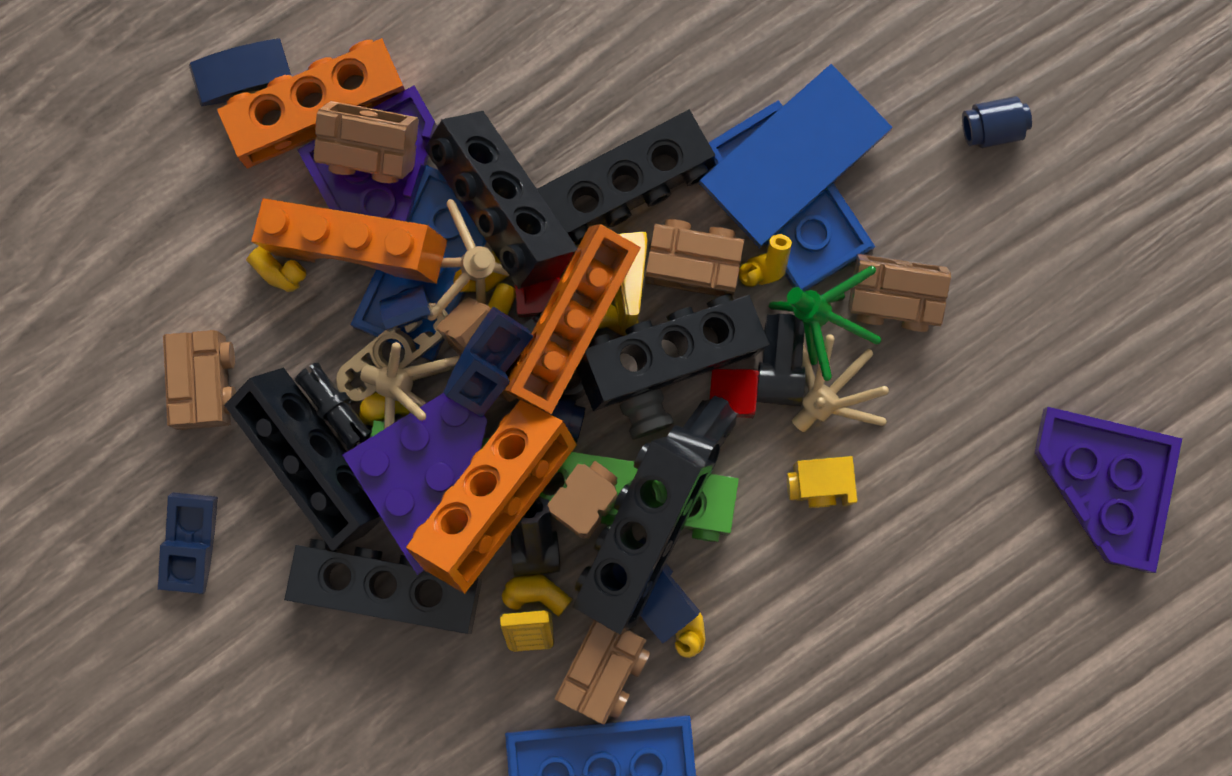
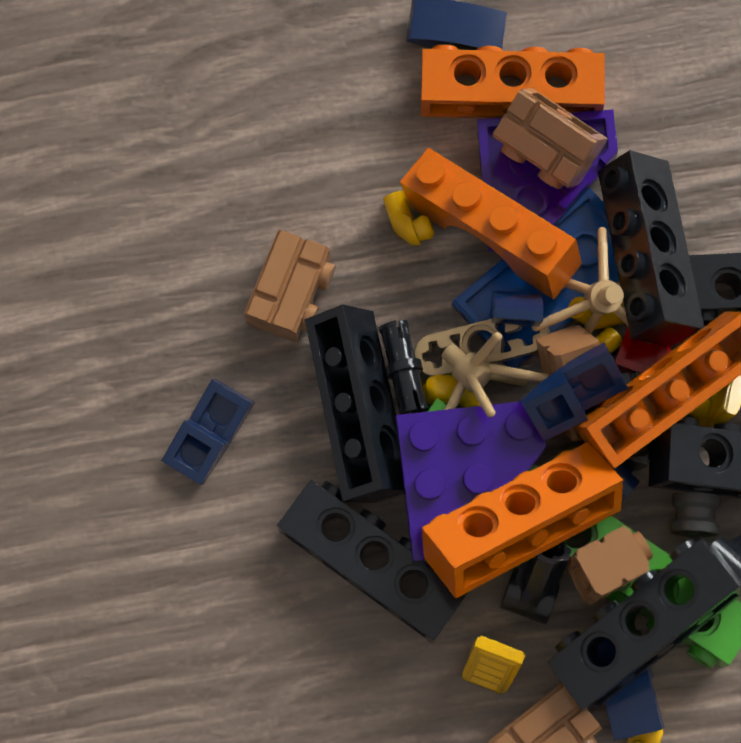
camera: 25 degrees right, 5 degrees down
(533, 589) = (512, 629): yellow arm -> none

